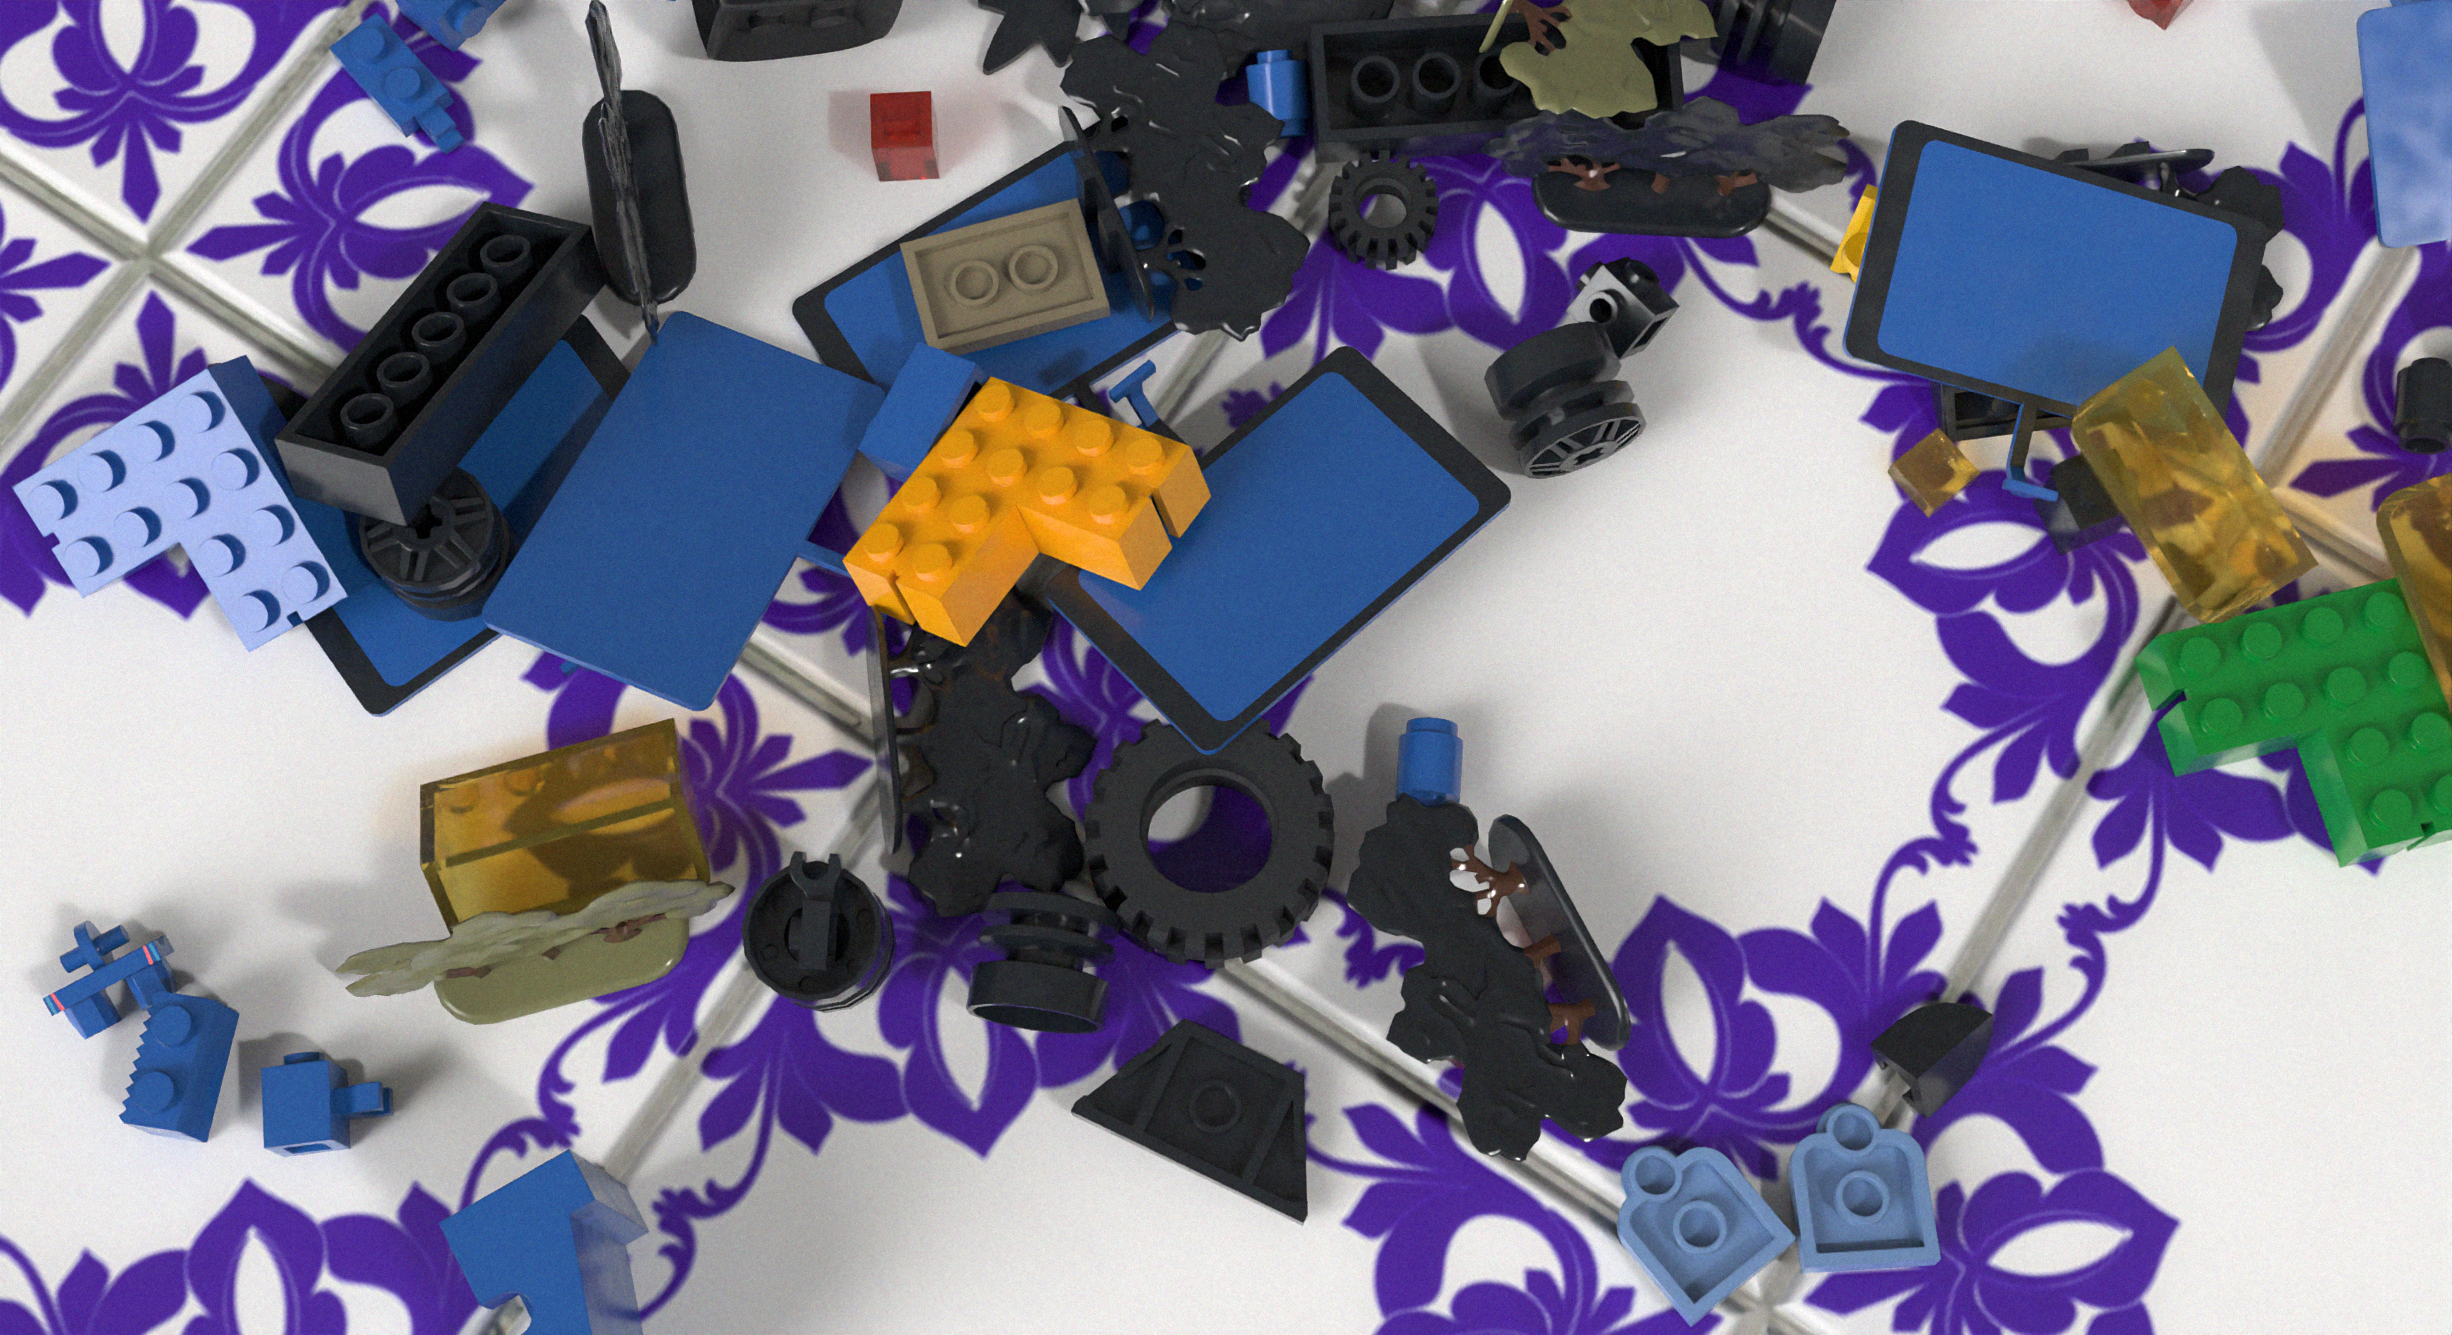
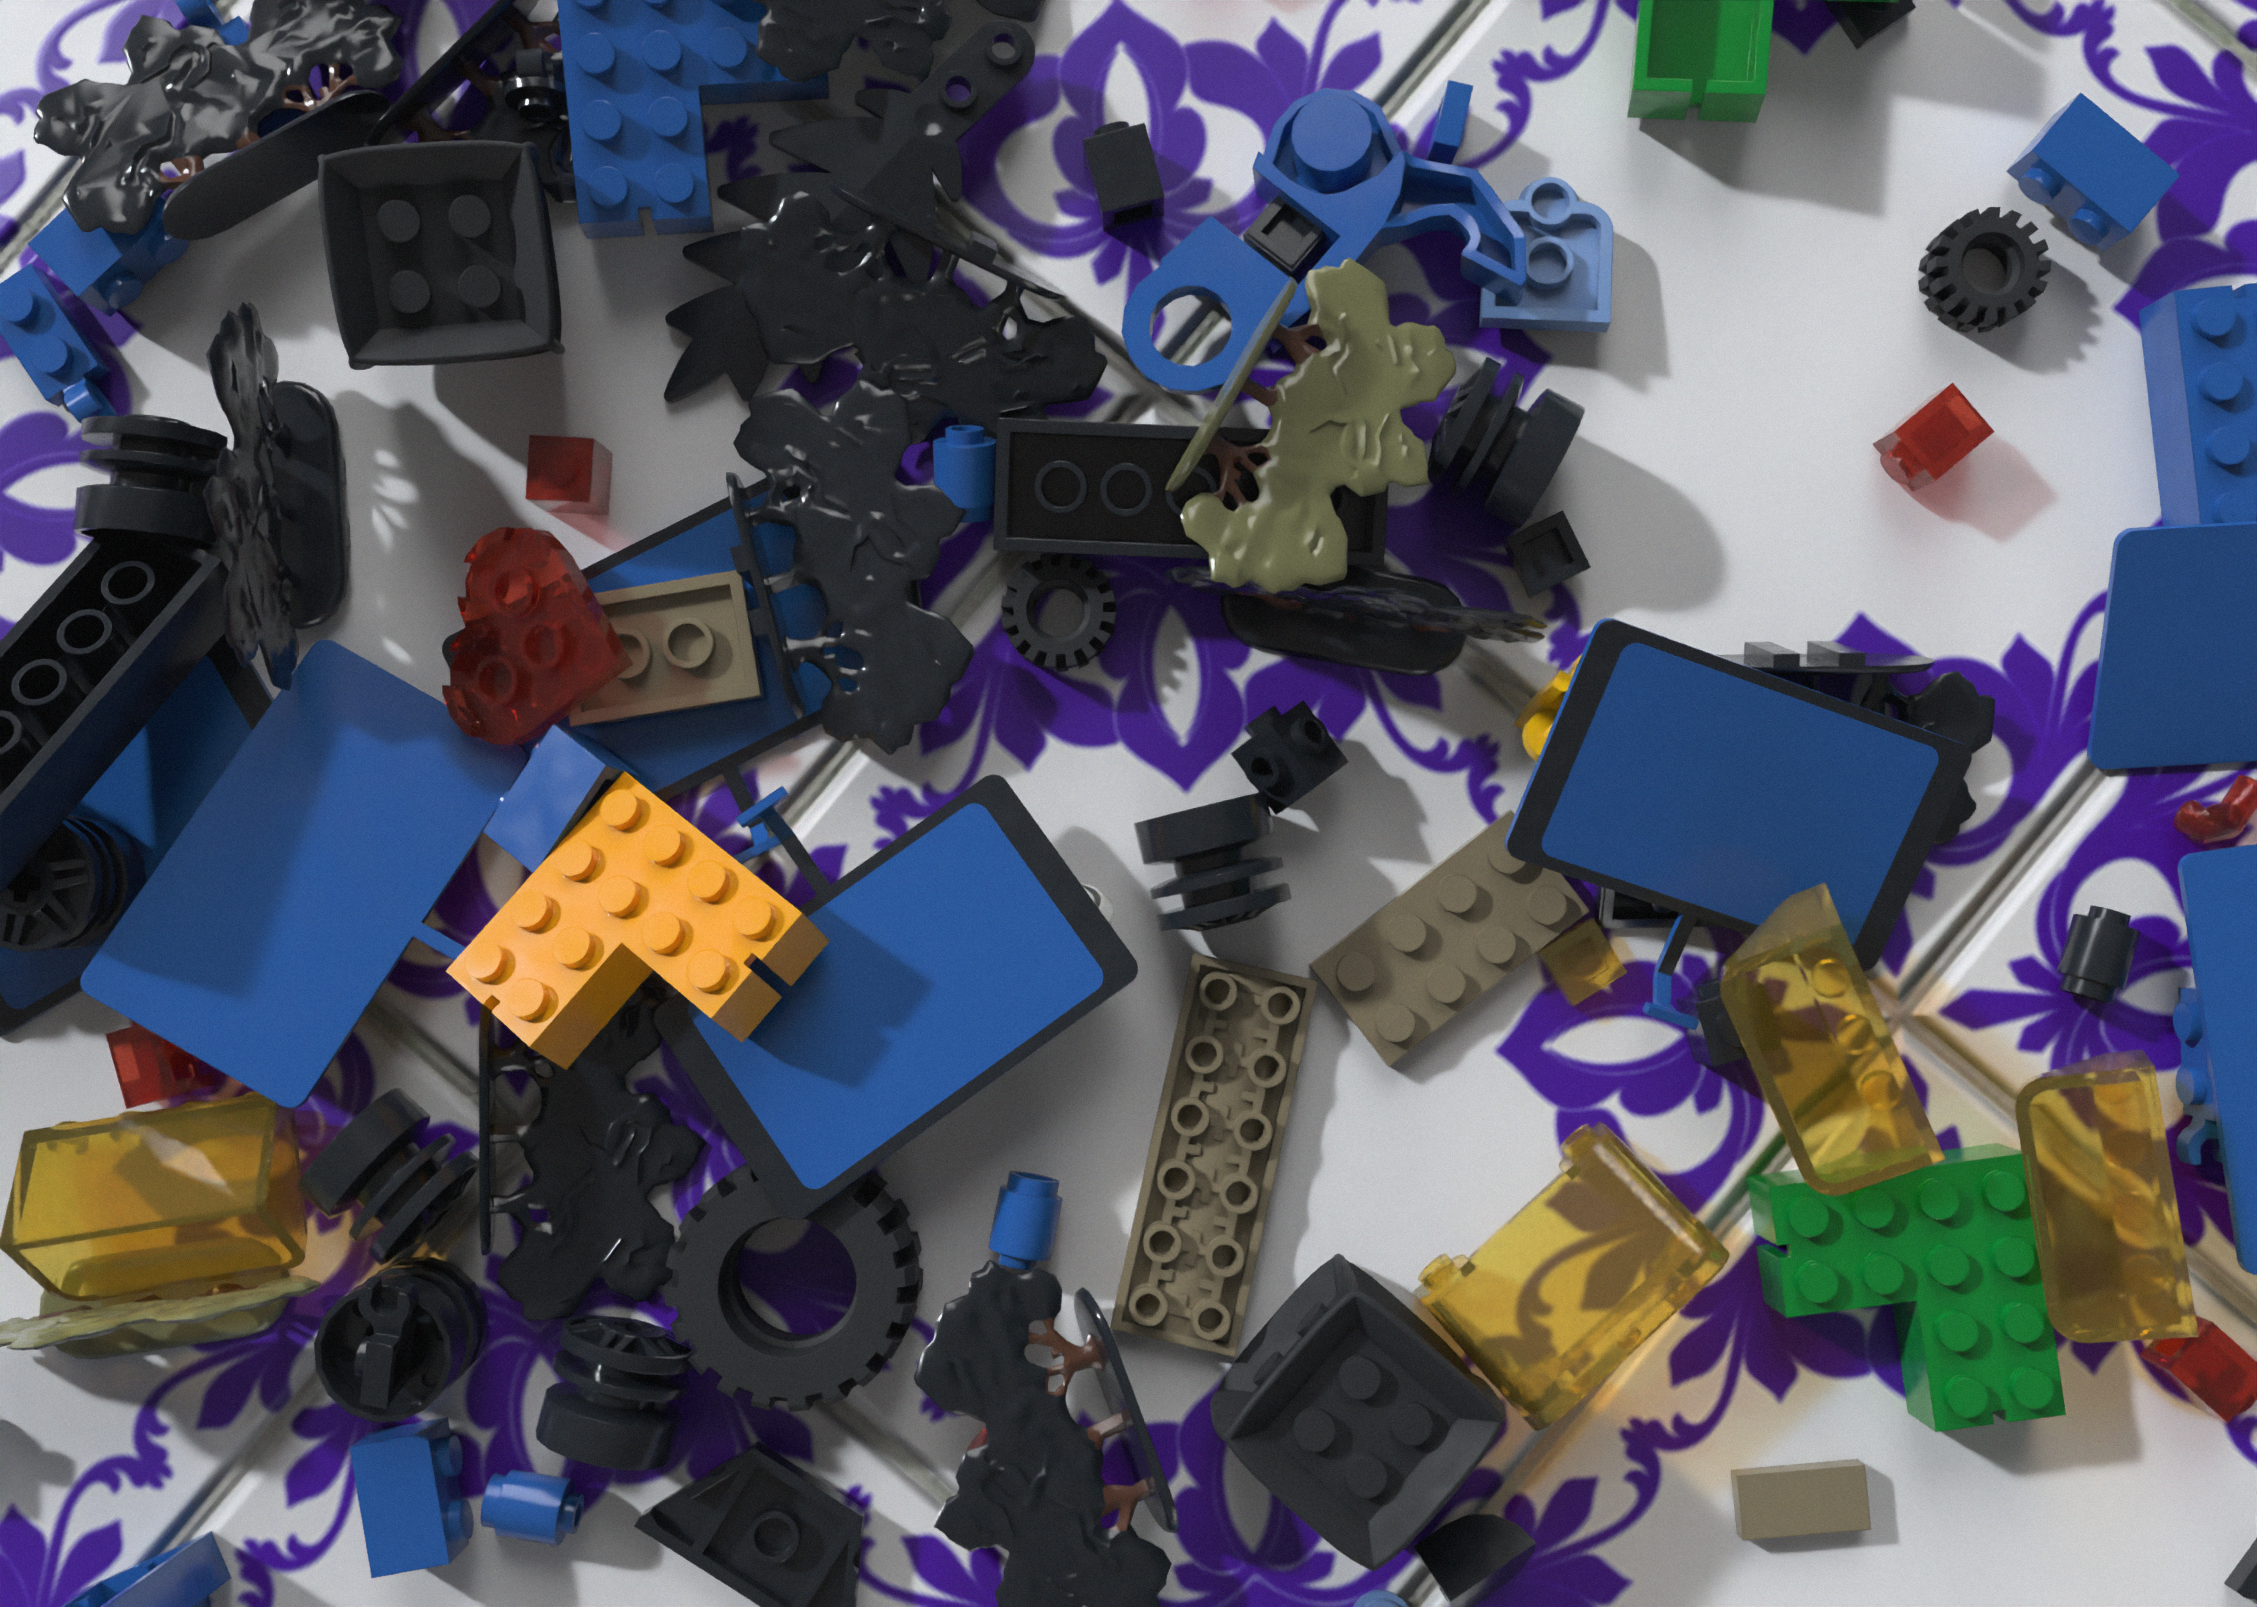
camera: 10 degrees right, 15 degrees up
(513, 158) = (151, 477): none -> black wheel
(546, 706) = (152, 1067): none -> clear red brick
(793, 779) = (389, 1175): none -> black wheel
(840, 1103) = (411, 1497): none -> blue brick
(884, 277) = (529, 639): none -> clear red plate
(962, 1106) = (532, 1506): none -> blue brick
(1606, 689) = (1213, 1154): none -> dark tan plate
(1792, 878) = (1355, 1413): none -> black piece
(1800, 466) = (1445, 941): none -> dark tan plate
(1840, 99) = (1546, 554): none -> black plate
(1973, 752) = (1573, 1278): none -> clear yellow windscreen
(2251, 959) = (1800, 1499): none -> dark tan tile

